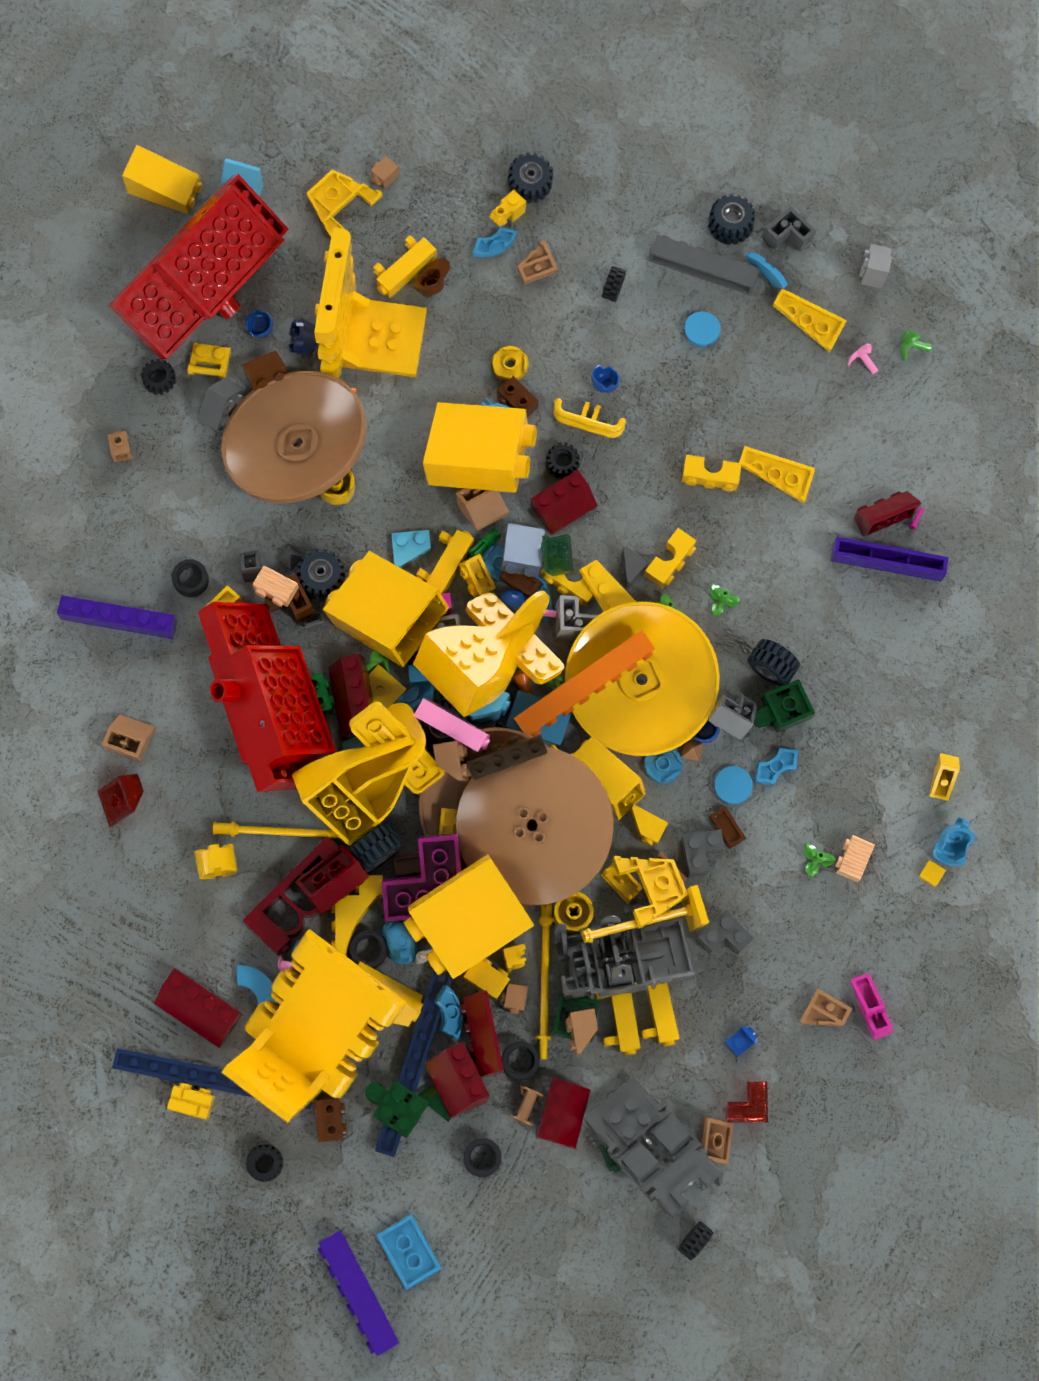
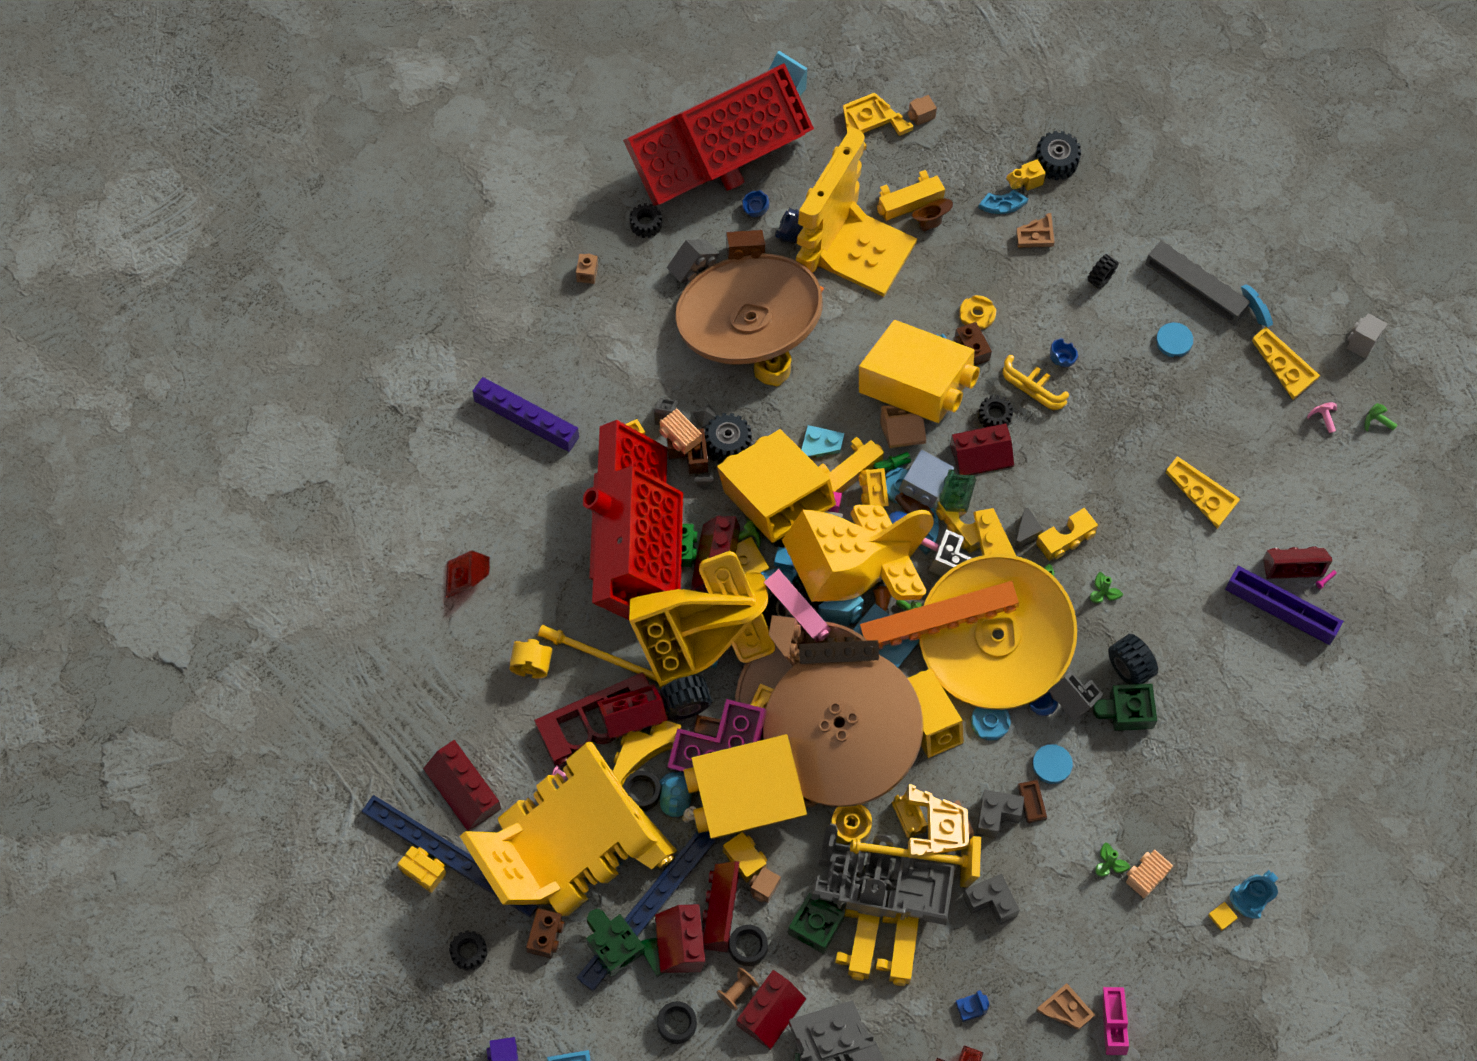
camera: 25 degrees right, 10 degrees down
(128, 738) = (493, 523): medium nougat slope -> none
(161, 181) = (713, 54): yellow slope -> none
(183, 565) = (605, 416): black tyre -> none
(212, 356) = (699, 217): yellow plate -> none
(255, 981) = (523, 780): dark azure tile -> none
(451, 1012) = (698, 875): dark azure tile -> none
(512, 957) = (778, 841): yellow hinge -> none
(546, 921) = (820, 823): yellow bar -> none
(582, 1028) = (818, 928): medium nougat slope -> none
(648, 825) = (954, 771): yellow slope -> none
(692, 750) = (1023, 718): medium nougat slope -> none
(695, 473) = (1148, 479): yellow arch -> none
(731, 219) = (1239, 250): black wheel -> none
(769, 771) = (1110, 759): dark azure tile -> none
(789, 226) = (1291, 273): dark grey brick -> none
(944, 776) = (1267, 828): yellow slope -> none

